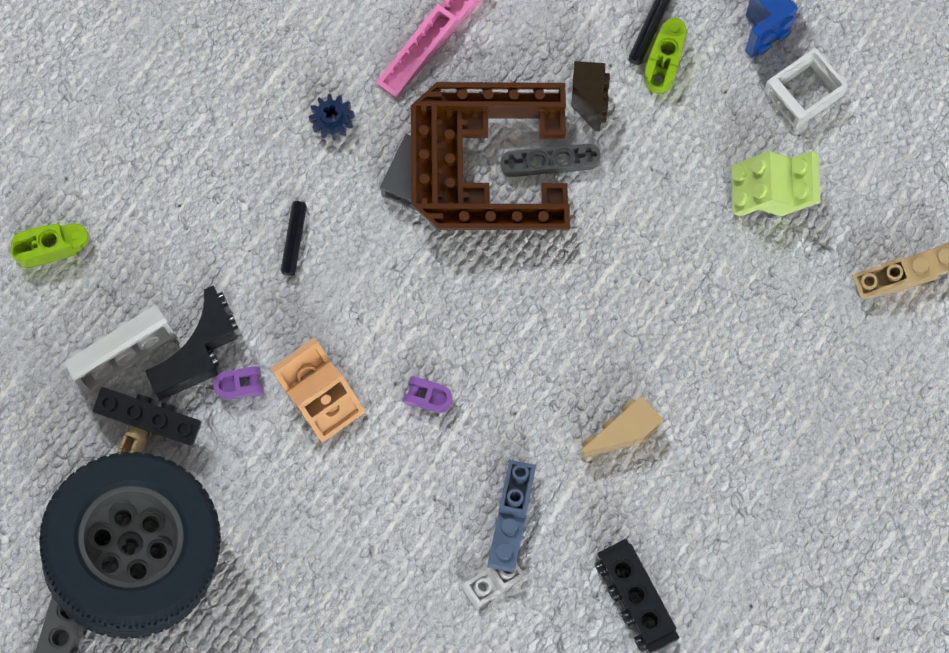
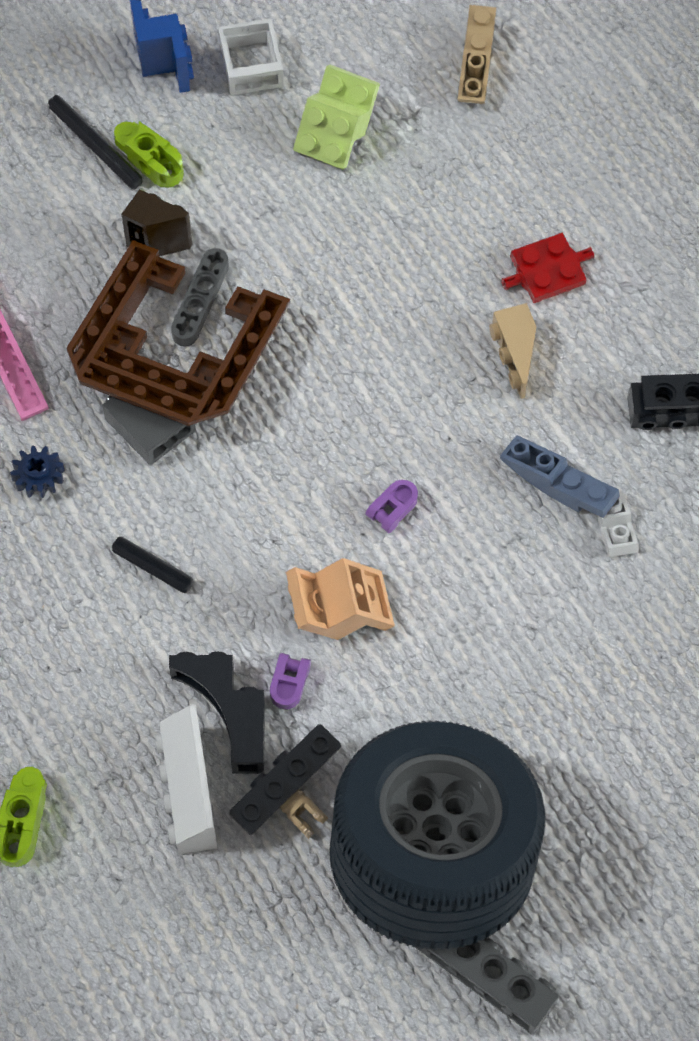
camera: 70 degrees left, 10 degrees down
(719, 424) = (547, 267): none -> red plate

